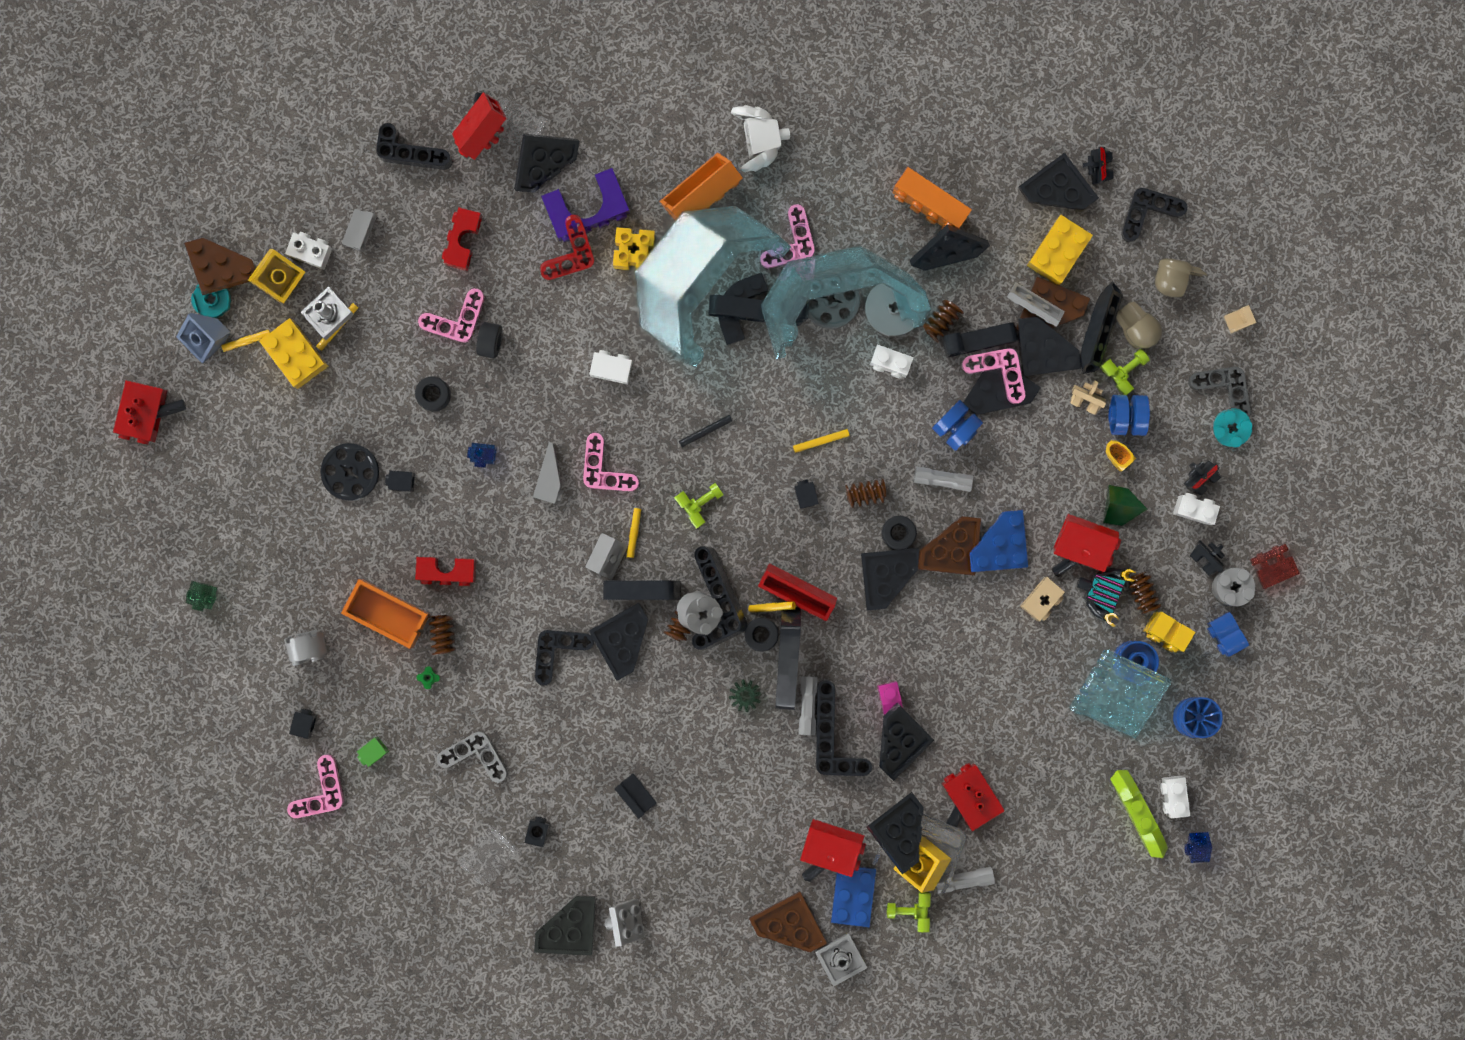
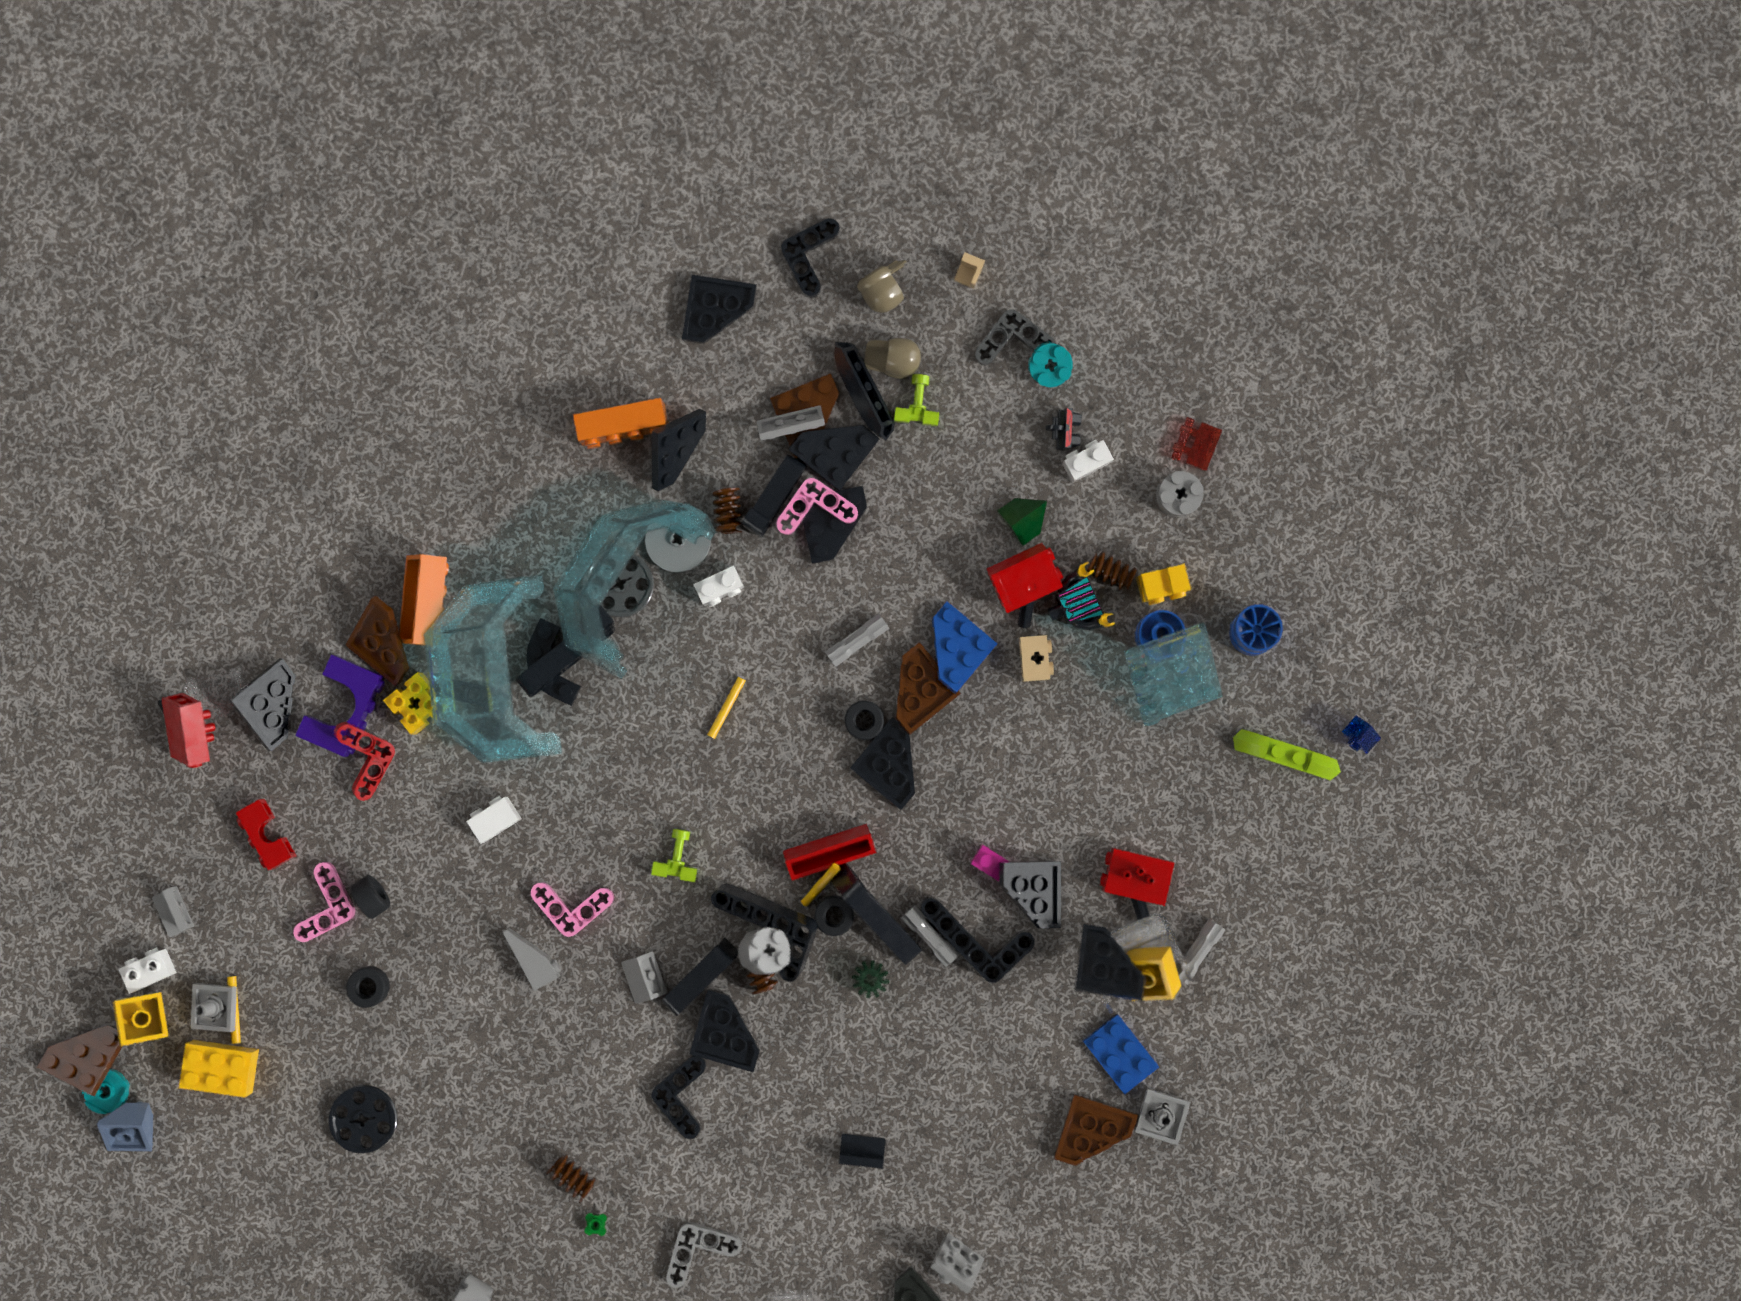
camera: 45 degrees left, 0 degrees up
(142, 411) = (140, 1242): red piece -> none
(244, 340) = (168, 1098): yellow piece -> none
(385, 613) = (507, 1207): orange piece -> none
(400, 481) = (412, 1085): black brick -> none
(415, 151) = (155, 802): black beam -> none
(428, 571) = (507, 1135): red arch -> none
(482, 454) = (458, 996): clear blue brick -> none
(535, 840) = (815, 1270): black brick -> none
(634, 532) = (647, 935): yellow piece -> none
(649, 188) = (379, 641): none -> reddish brown plate
(704, 431) = (629, 775): black bar -> none
(761, 135) = (430, 506): white torso -> none
(795, 248) = (549, 570): bright pink beam -> none
(806, 494) = (757, 764): black brick -> none
(831, 849) = (1065, 1035): red piece -> none
(866, 493) = (805, 714): reddish brown piece -> none
(919, 911) = (1187, 1013): lime bar -> none
(961, 429) = (830, 585): blue wheel -> none
(1059, 250) = (766, 358): yellow brick -> none
(1080, 394) = (900, 459): tan hips -> none
(1097, 165) = (729, 259): black hips -> none
(1119, 454) = (980, 478): rock -> none
(1126, 415) = (951, 443): blue wheel -> none
(1175, 797) = (1302, 712): white brick -> none
(1214, 563) = (1145, 490): black hips -> none
(1227, 634) = (1213, 537): blue brick -> none

